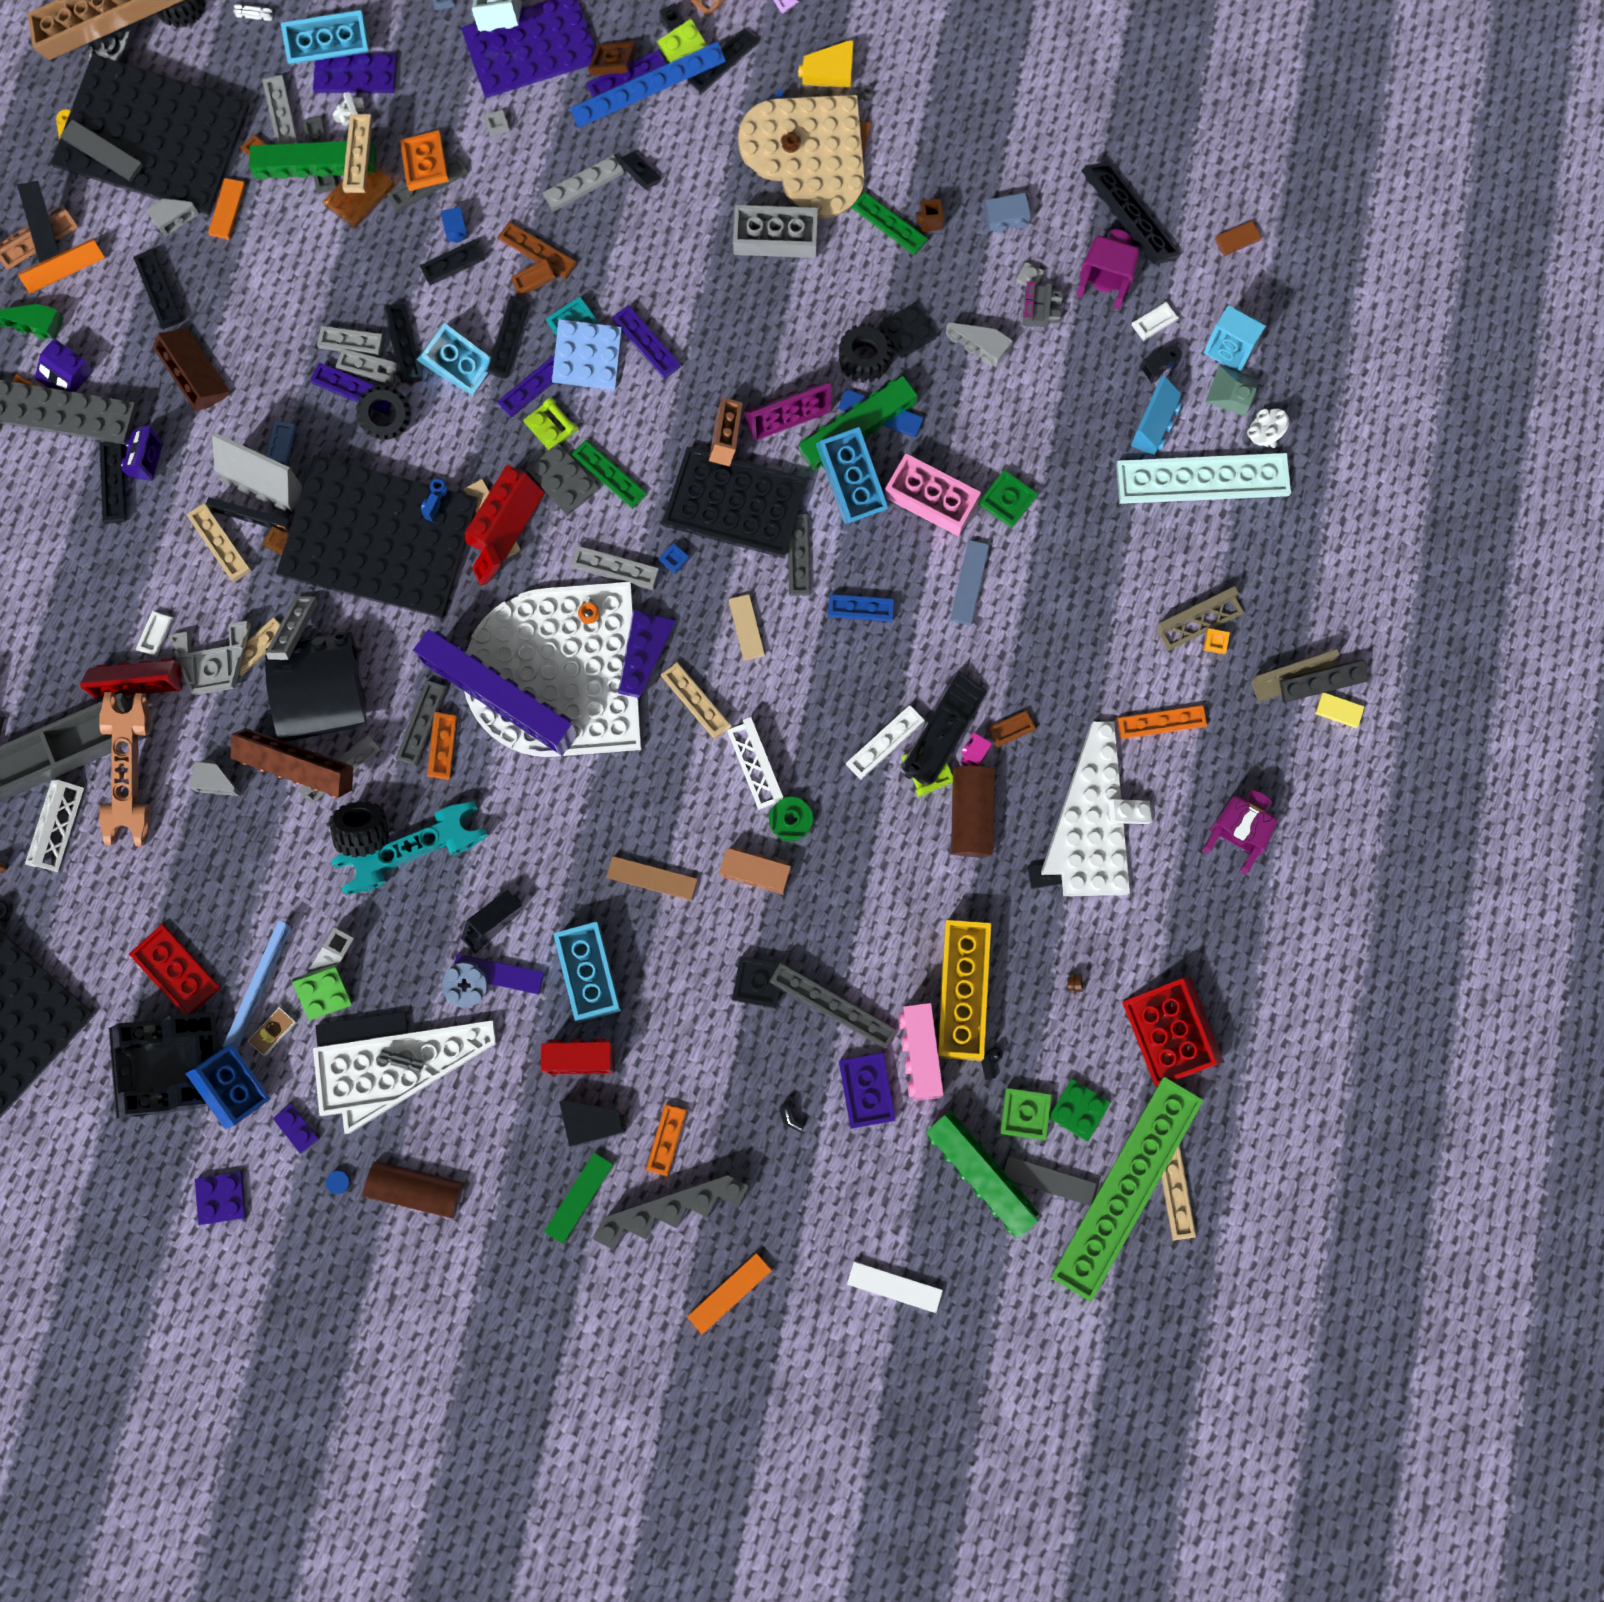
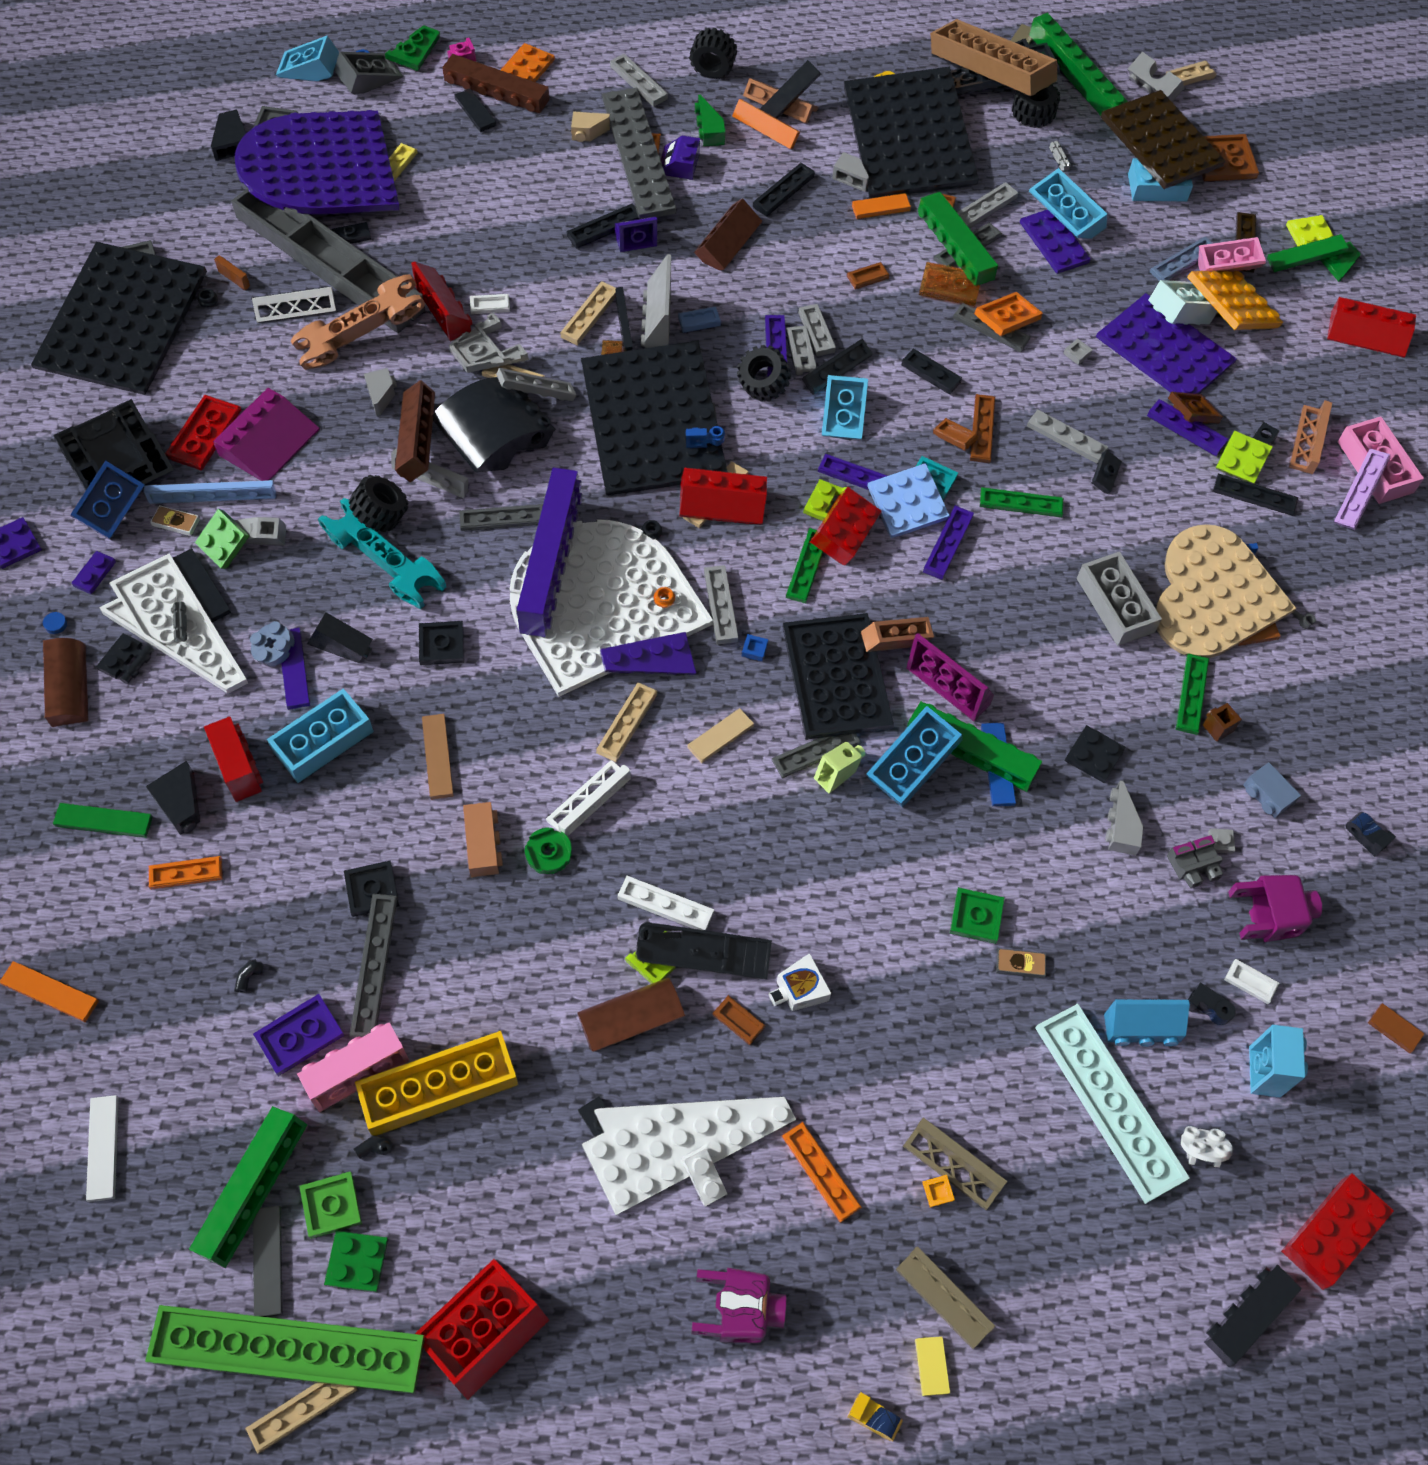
camera: 60 degrees right, 15 degrees down
(101, 150) = (873, 104): dark grey tile -> none
(215, 909) = (265, 436): none -> magenta slope
(307, 263) = (868, 275): none -> dark orange tile
(348, 107) = (1011, 245): white hips -> none
(357, 153) = (978, 258): tan plate -> none
(406, 1131) = (121, 654): none -> black plate
(441, 745) = (487, 539): orange tile -> none
(454, 224) = (965, 358): blue brick -> none
(486, 565) = (668, 502): red plate -> none
(501, 588) = (652, 524): none -> black plate
(507, 337) = (888, 437): black tile -> none
(536, 830) = (441, 643): none -> black plate
(562, 479) = (782, 531): dark grey plate -> none
(590, 421) = (845, 526): none -> red brick
(633, 259) = (1021, 502): none -> green tile
(647, 84) = (1191, 444): blue plate -> none
(669, 1210) = (113, 903): dark grey brick -> none
(790, 147) = (1209, 575): reddish brown plate -> none
(826, 542) = (838, 765): none -> yellowish green torso
(828, 66) = (1310, 578): yellow slope -> none
(860, 367) = (1042, 736): black tyre -> none
(860, 608) = (791, 826): blue plate -> none
(932, 494) = (939, 840): bright pink brick -> none
(969, 583) = (870, 916): sand blue tile -> none
(975, 751) = (695, 992): dark pink brick -> none
(1006, 666) = (801, 985): none -> torso
(1062, 486) = (1021, 963): none -> tile
(1074, 161) = (1369, 833): none -> black leg
(1075, 983) = (491, 1195): reddish brown plate -> none
(1130, 213) = (1348, 906): black plate -> none
(1232, 390) = (1226, 1093): sand green slope -> none
(1323, 680) = (955, 1331): black plate -> none
(1358, 768) = (875, 1417): none -> leg
(1369, 371) = (1337, 1231): none -> red brick
(1400, 464) = (1252, 1314): none -> black brick

